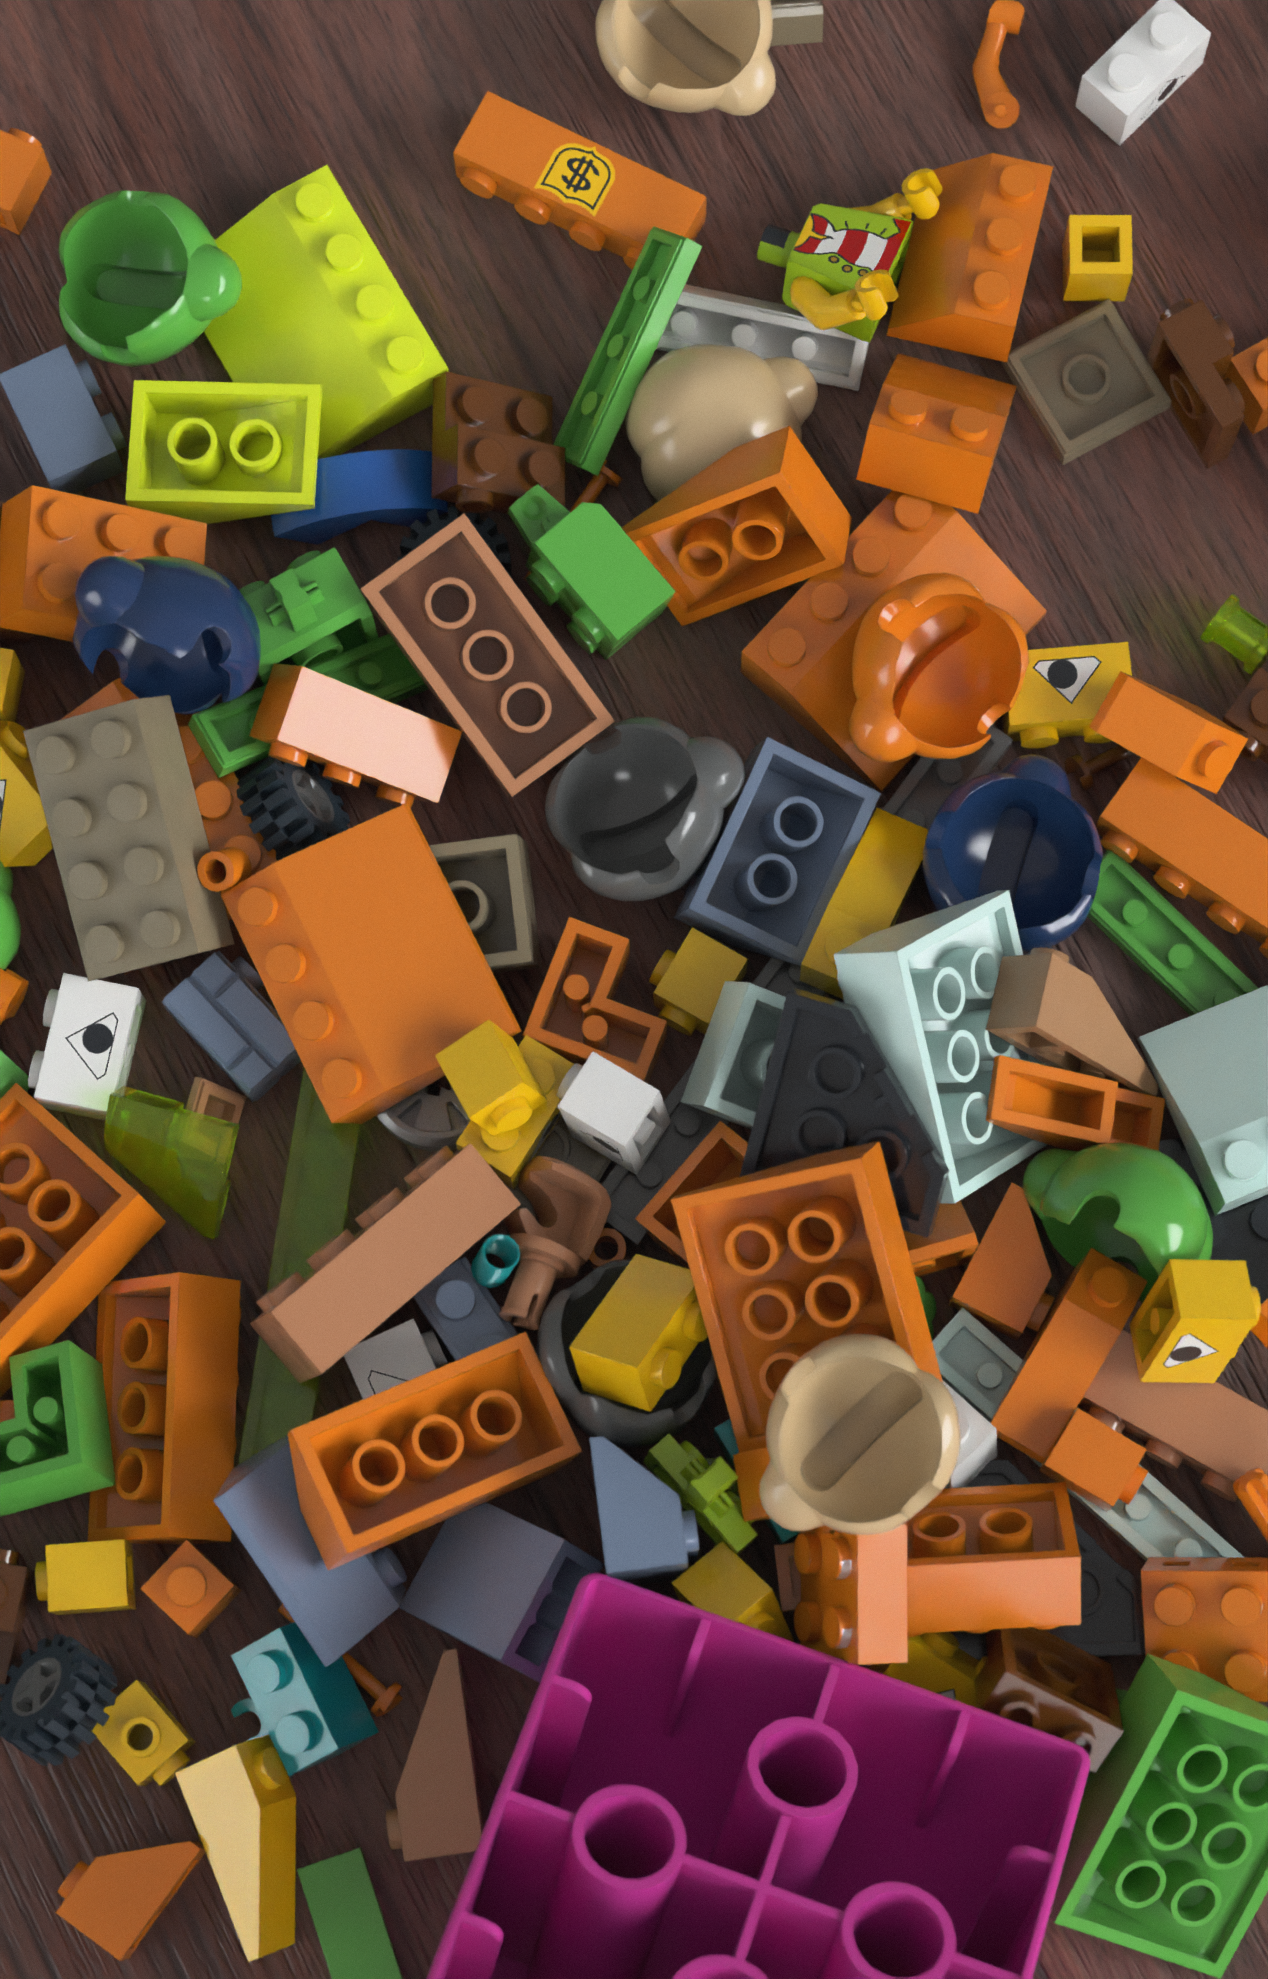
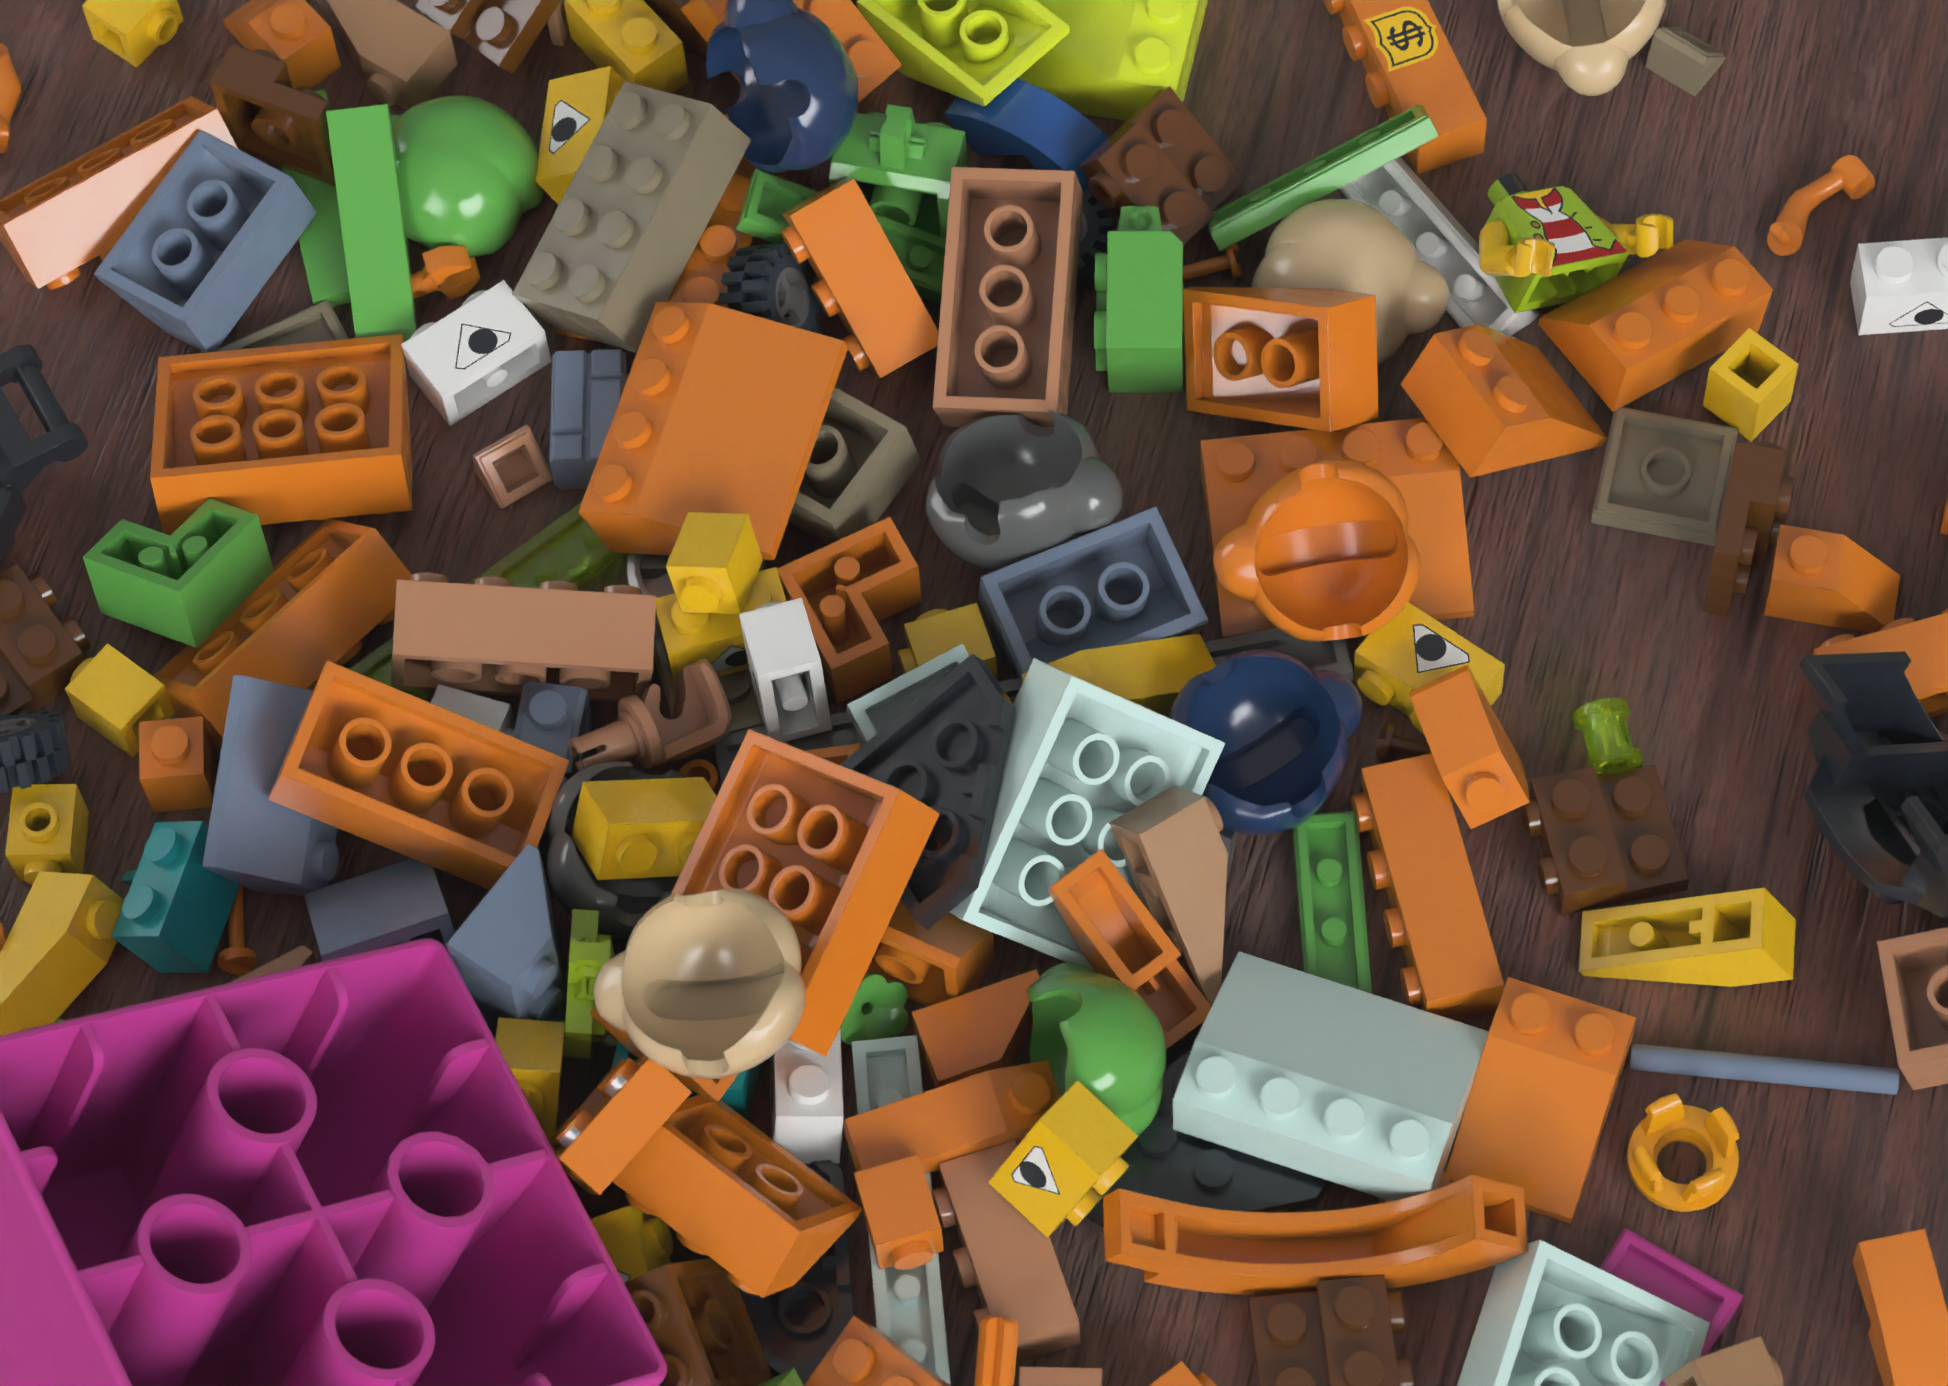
camera: 45 degrees right, 15 degrees down
(173, 1153) = (460, 464): clear neon green slope -> none
(211, 872) = (674, 283): orange piece -> none
(503, 1247) = (603, 686): teal piece -> none

